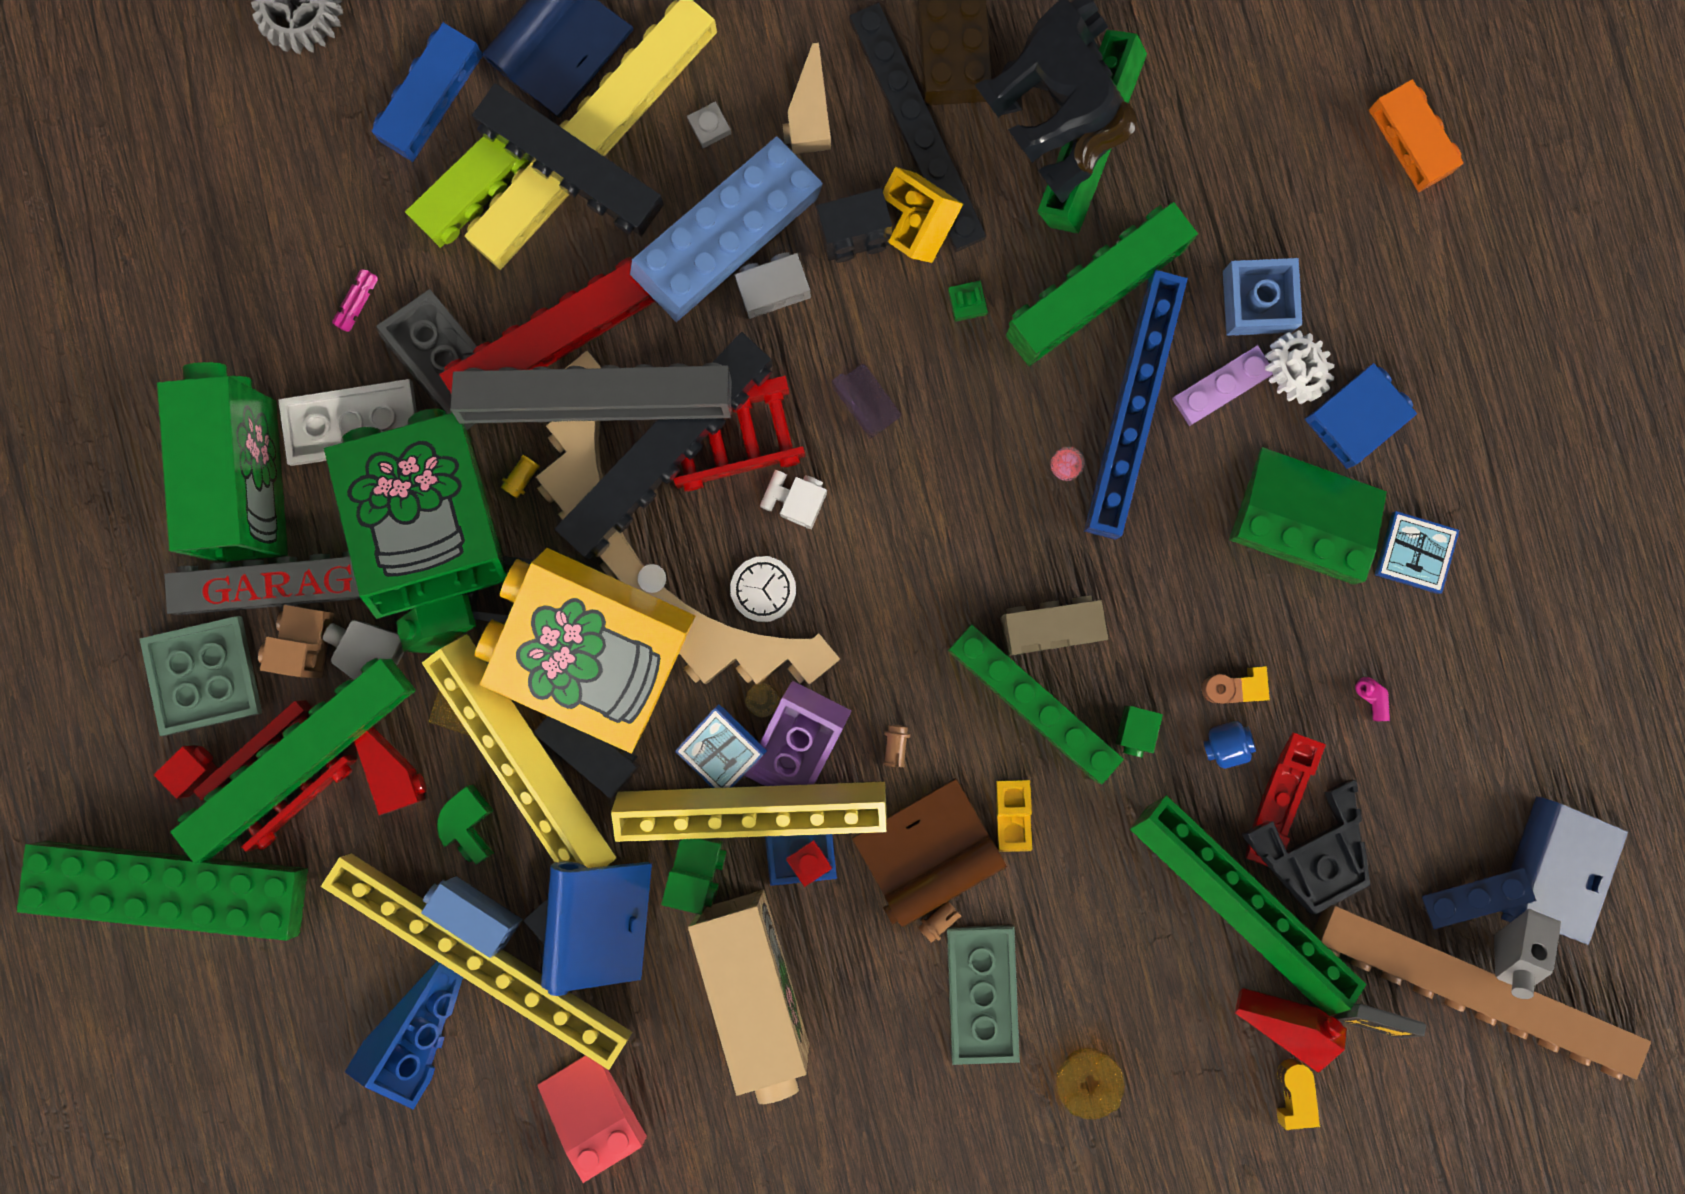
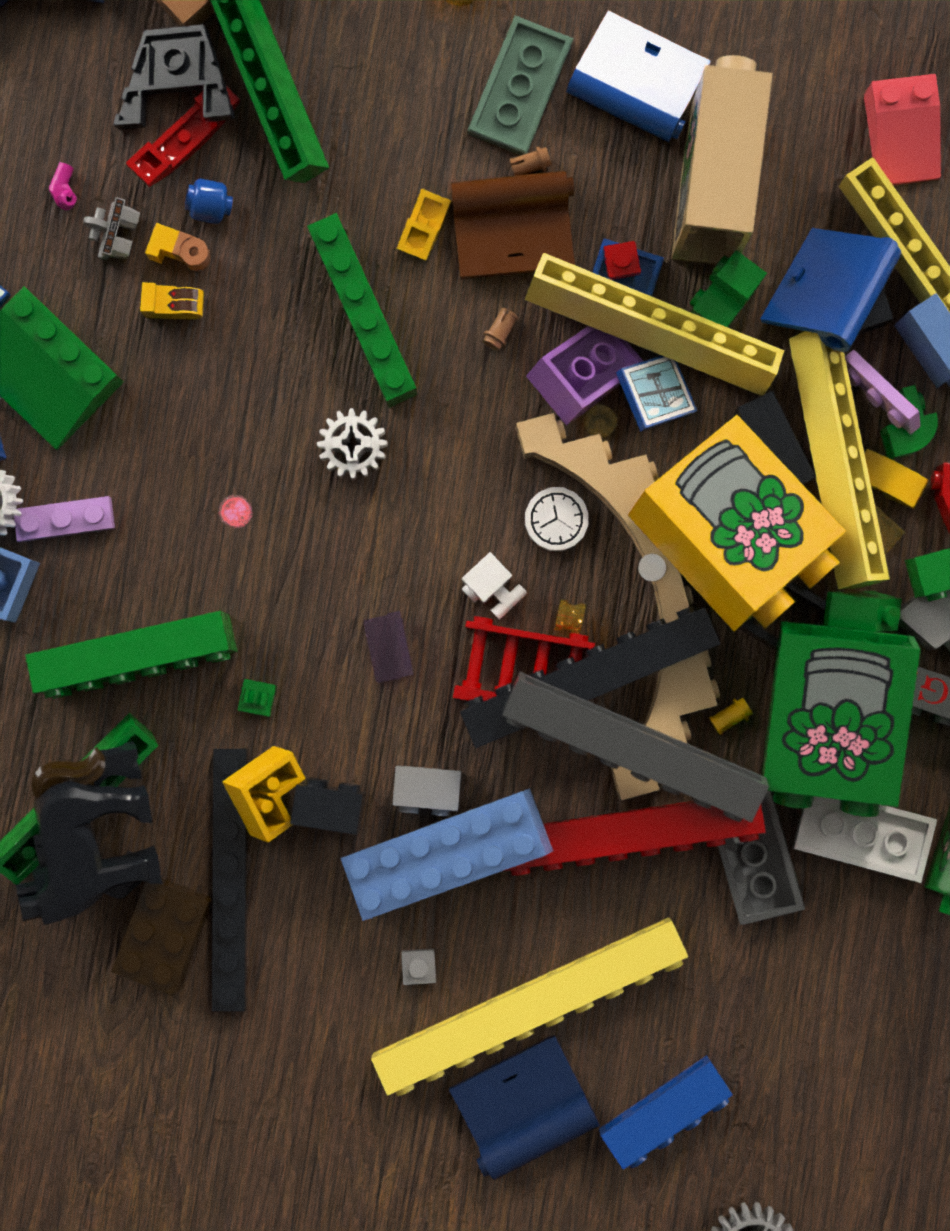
camera: 155 degrees left, 0 degrees up
(355, 300) = (813, 946): dark pink axle -> none
(459, 767) = (894, 479): none -> yellow slope
(464, 190) = (663, 1005): lime brick -> none
(504, 841) = (882, 393): none -> lavender plate
(567, 160) = (564, 982): black brick -> none
(710, 501) = (569, 616): none -> clear yellow wheel
(807, 113) = (323, 933): tan slope -> none
(872, 1054) = (637, 77): none -> door
(979, 558) = (337, 444): none -> white gear
(1053, 626) = (315, 370): dark tan wedge -> none
(1135, 405) = (151, 532): blue brick -> none
(1138, 731) = (282, 248): green brick -> none
(1220, 632) = (171, 302): none -> yellow leg
(1308, 693) = (118, 216): none -> light grey hips

